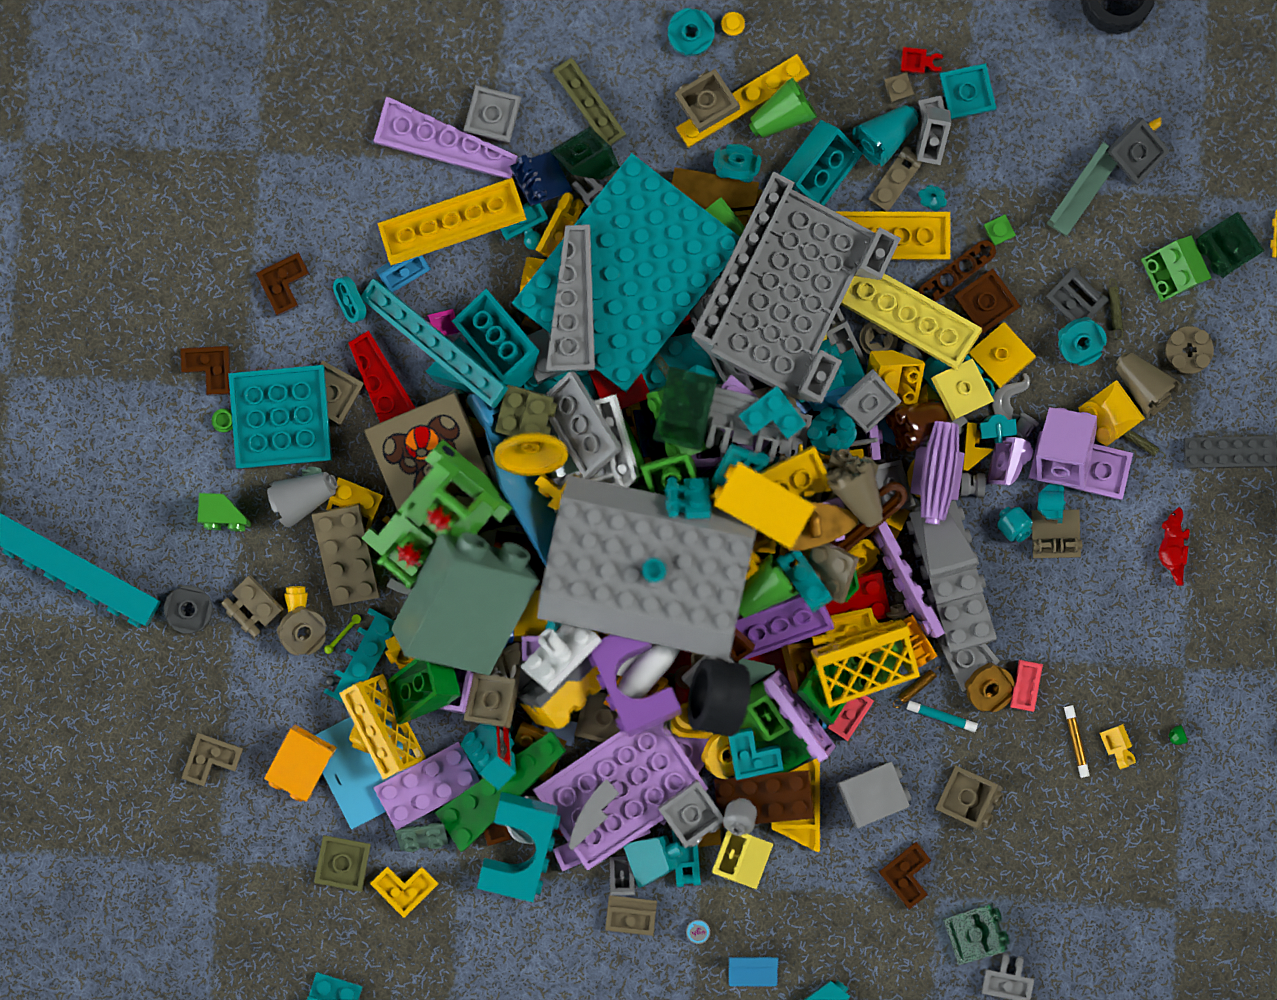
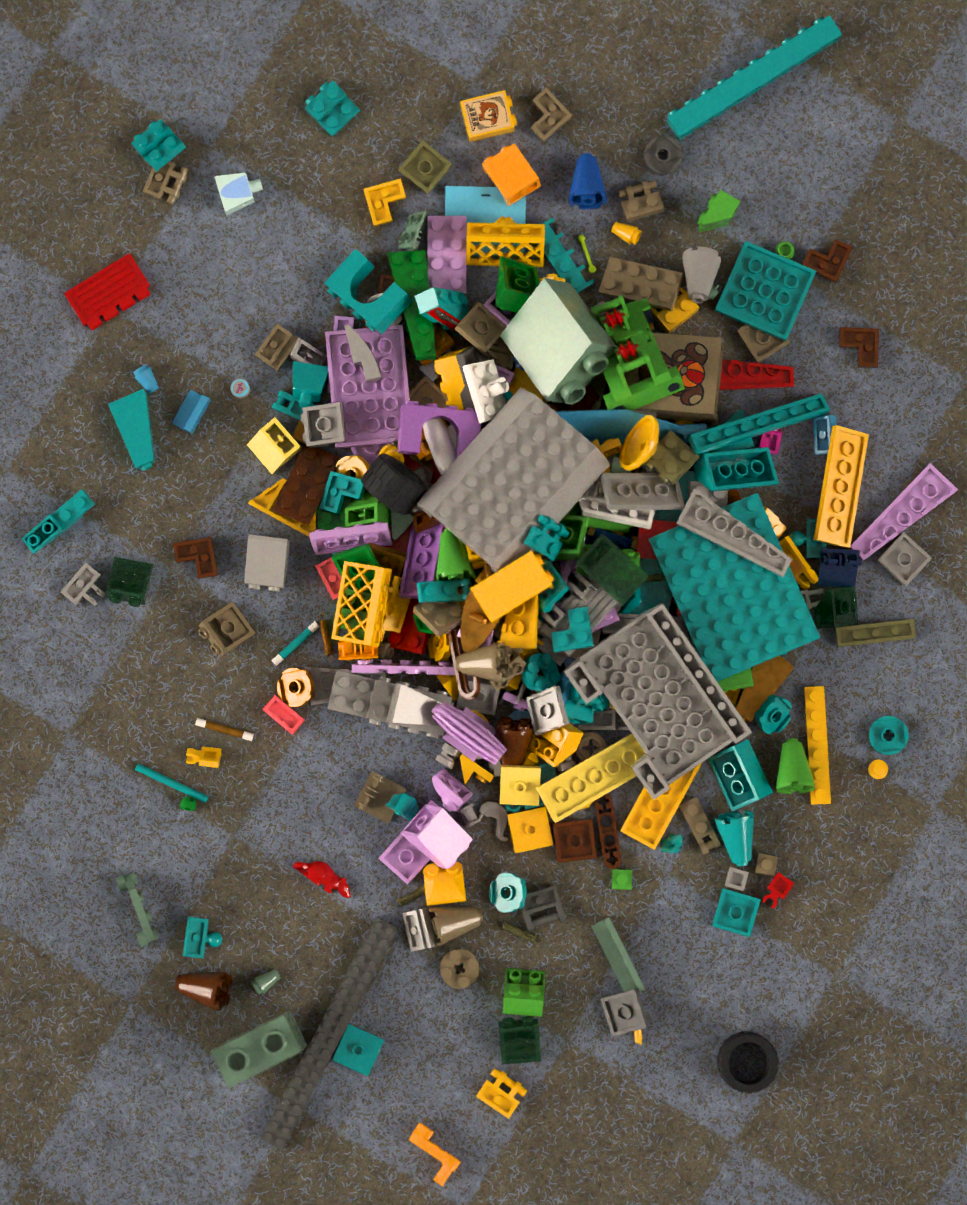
camera: 120 degrees right, 0 degrees up
(247, 825) = (488, 115): none -> brick
(265, 674) = (587, 184): none -> blue cone
(297, 619) = (594, 220): dark tan plate -> none
(349, 299) = (821, 384): teal plate -> none
(654, 570) = (507, 482): teal plate -> none
(706, 100) = (831, 717): dark tan plate -> none
(740, 817) = (302, 457): light grey head -> none
(933, 135) = (716, 867): light grey brick -> none
(996, 427) = (479, 795): teal piece -> none
(1015, 524) = (403, 770): teal head -> none
(1165, 766) = (172, 783): none -> teal bar
(1173, 414) = (419, 929): none -> light grey plate

